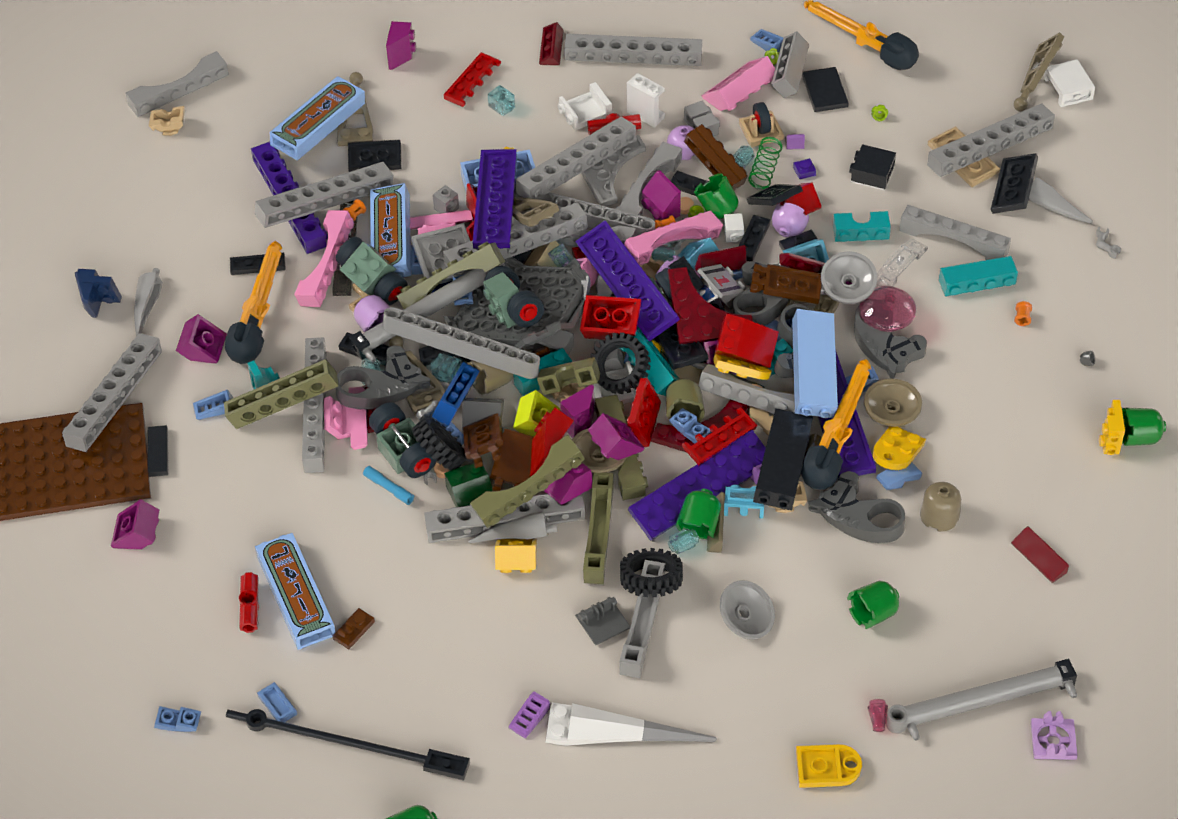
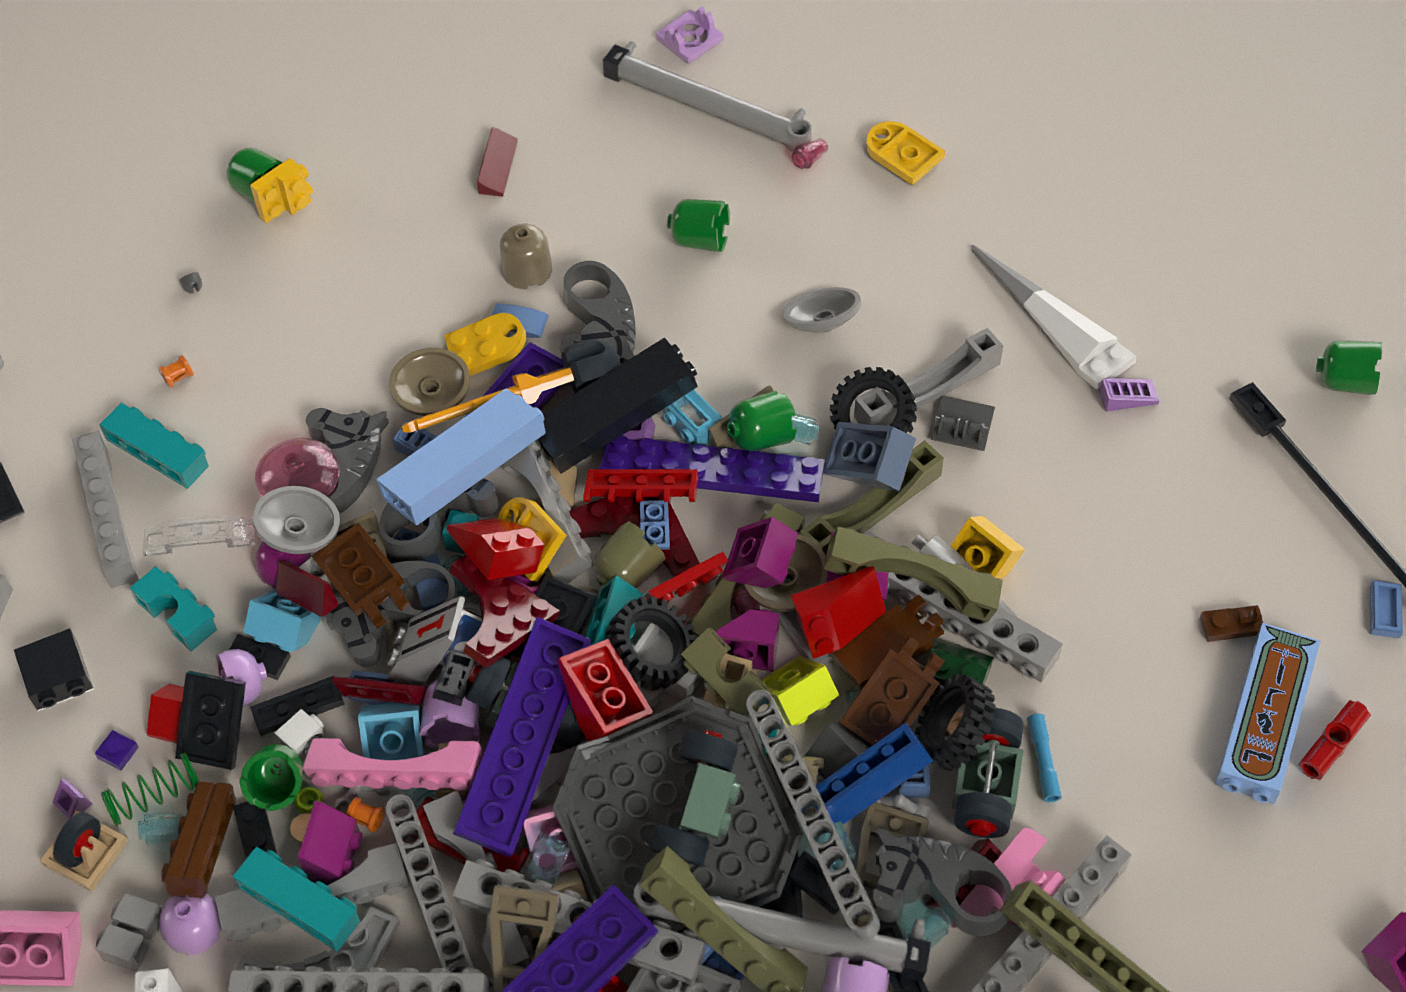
camera: 135 degrees left, 5 degrees up
(620, 538) = (869, 455): none -> sand blue slope
(643, 164) = (297, 898): none -> teal brick

